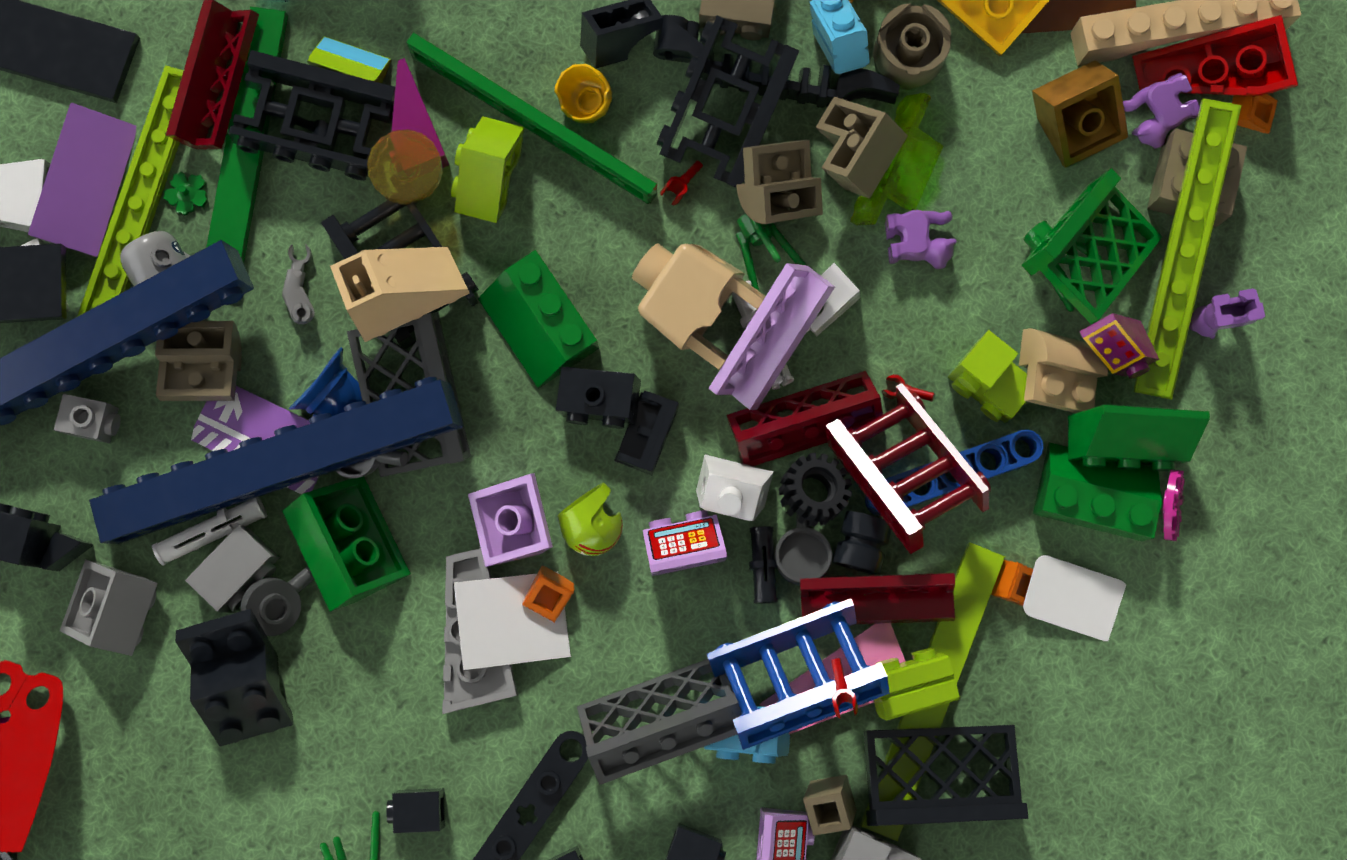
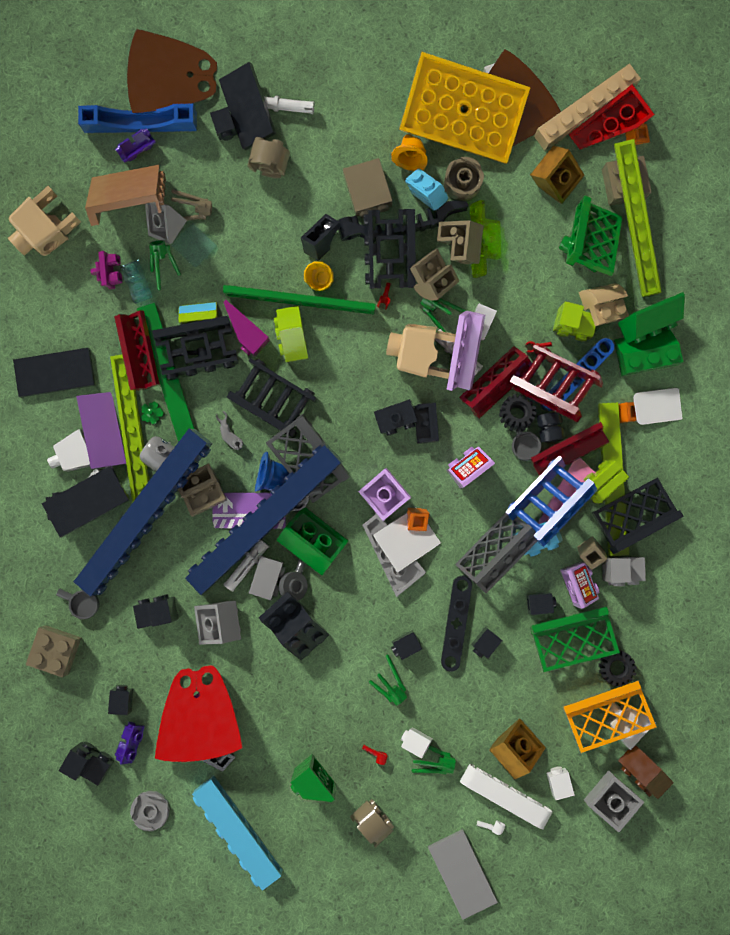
camera: 25 degrees left, 5 degrees up
(62, 551) = (183, 606): black slope -> none
(87, 419) = (162, 541): light grey brick -> none
(396, 286) = (281, 410): tan slope -> none
(404, 166) = (253, 351): clear yellow tile -> none
(537, 319) = (350, 394): green slope -> none
(587, 526) = (419, 478): lime helmet -> none
(732, 488) = (478, 430): white torso -> none
(763, 590) = (509, 459): black pin -> none
(842, 692) = (578, 500): red hand -> none
(914, 236) = (507, 271): medium lavender animal -> none
(1121, 345) = (628, 278): magenta slope -> none
(1166, 107) = (596, 153): medium lavender animal -> none
(1171, 505) = (683, 339): dark pink wheel -> none
(1227, 313) = (669, 240): medium lavender animal -> none

